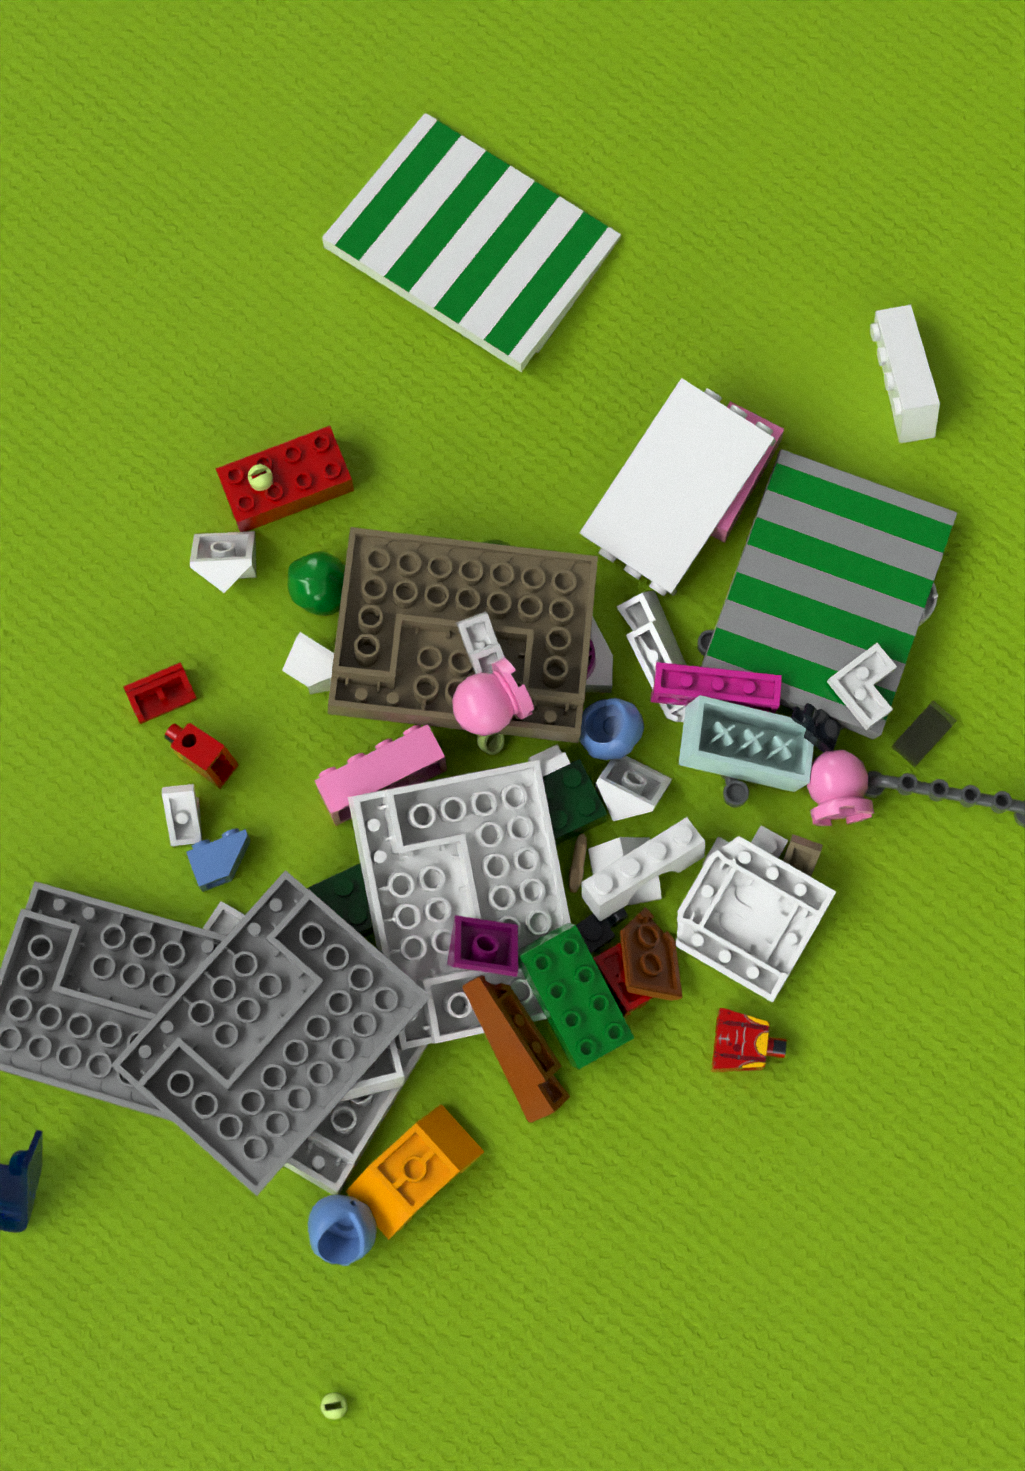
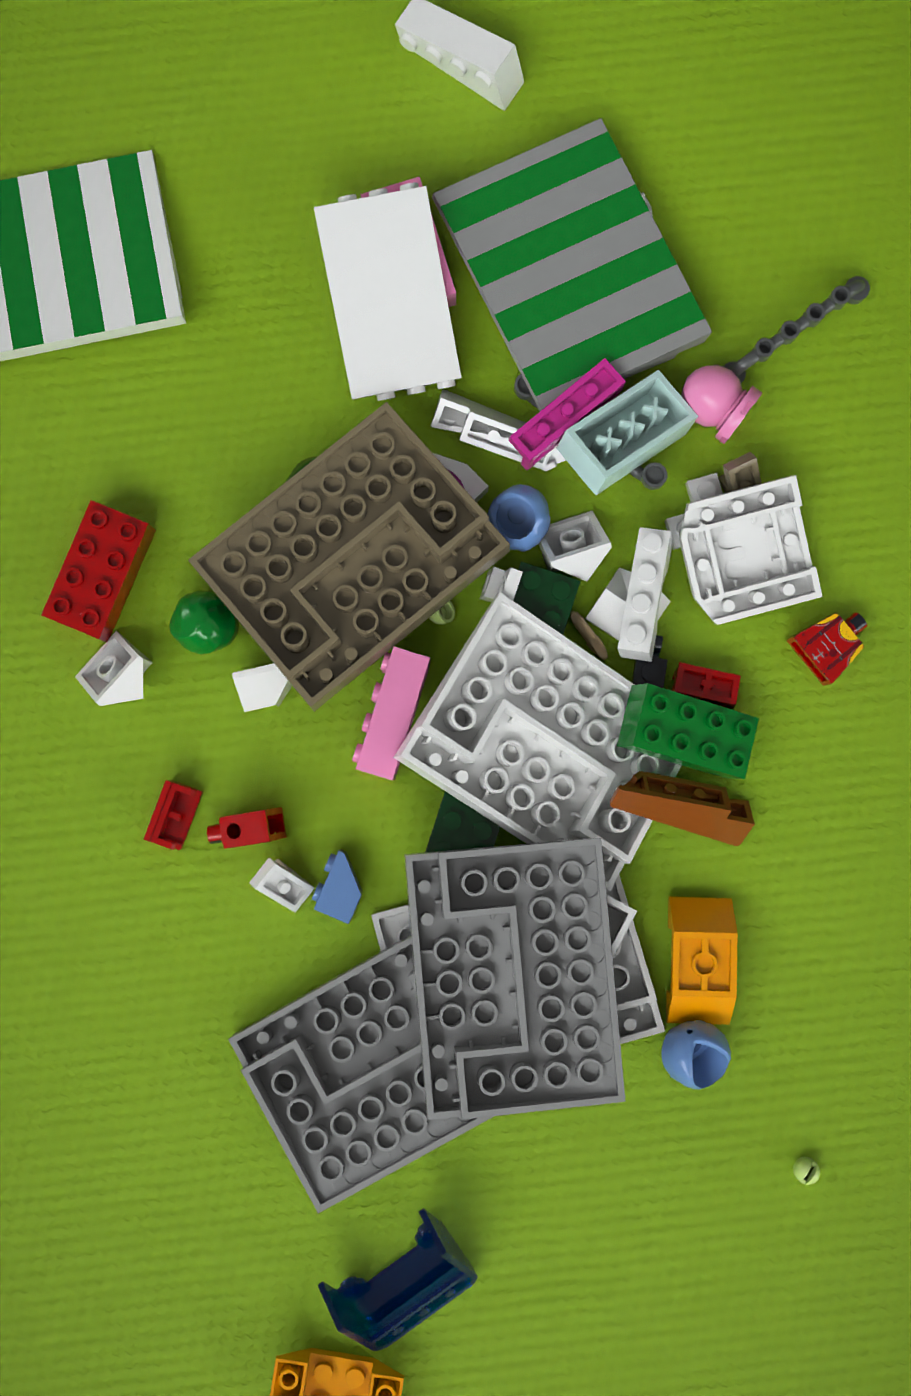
camera: 55 degrees left, 10 degrees up
(262, 481) = (86, 591): yellowish green hinge -> none
(480, 642) = (378, 551): white slope -> none
(484, 946) = (599, 764): magenta slope -> none
(488, 701) = (427, 587): bright pink tile -> none
(650, 959) = (710, 651): dark orange tile -> none
(819, 726) = (665, 368): black plate -> none
(856, 685) = (663, 313): white plate -> none
(924, 733) = (730, 303): clear smoke tile -> none

